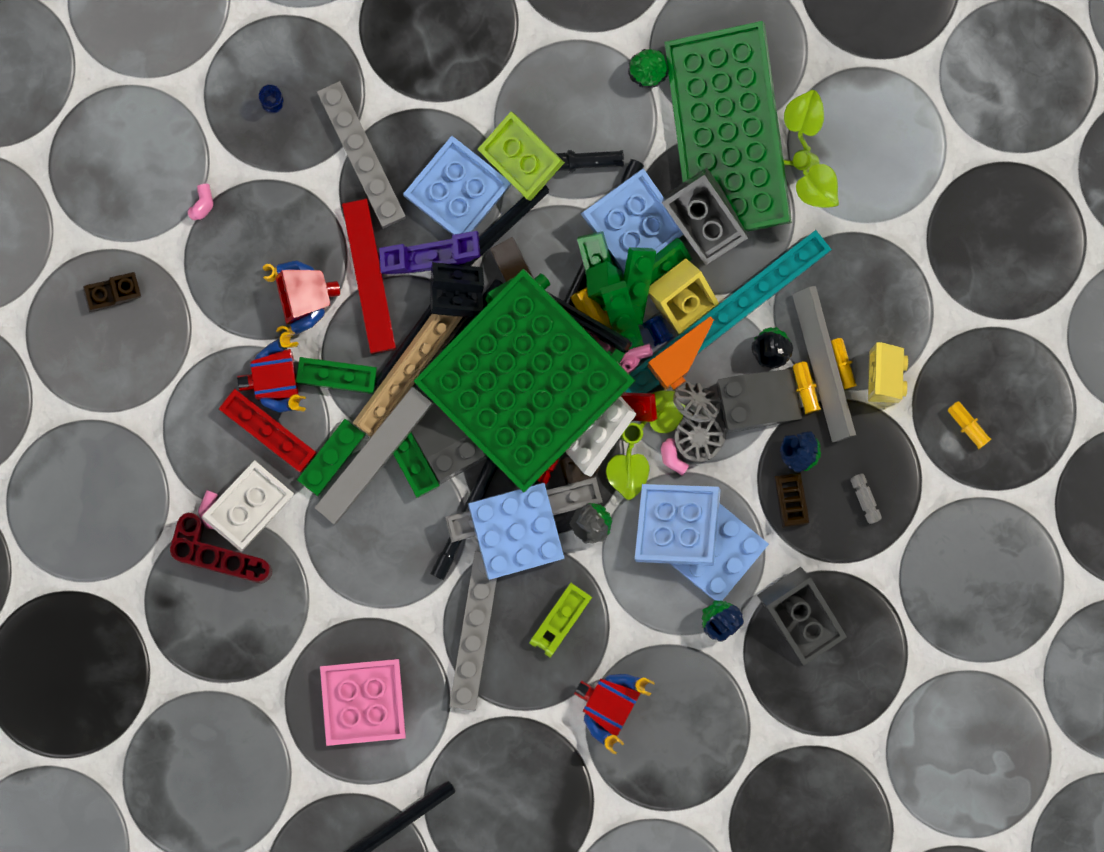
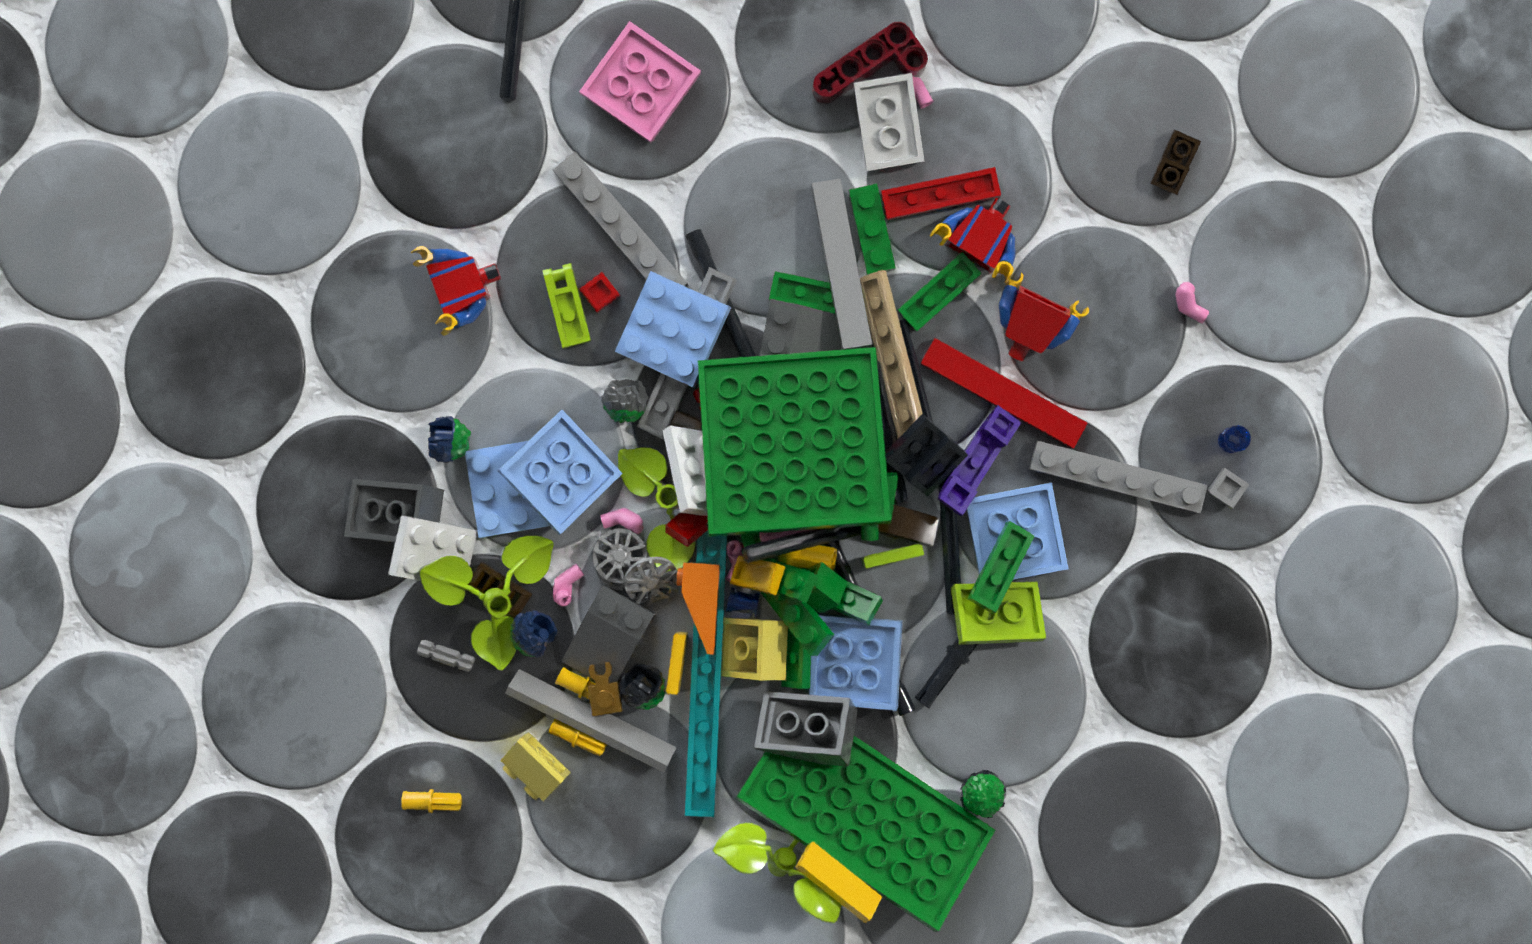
camera: 135 degrees right, 5 degrees up
(307, 76) = (1227, 488): none -> light grey plate
(489, 177) = (1001, 567): none -> green plate
(532, 606) = (599, 292): none -> red tile
(543, 256) = (892, 556): none -> lime tile
(632, 327) = (757, 575): none -> yellow tile
(736, 337) = (676, 663): none -> yellow tile
(750, 460) = (563, 585): none -> bright pink arm
(787, 109) = (838, 882): none -> yellow tile
(798, 368) = (604, 695): none -> pearl gold plate
(805, 561) = (425, 541): none -> white plate
(810, 534) = (449, 578): none -> lime plant

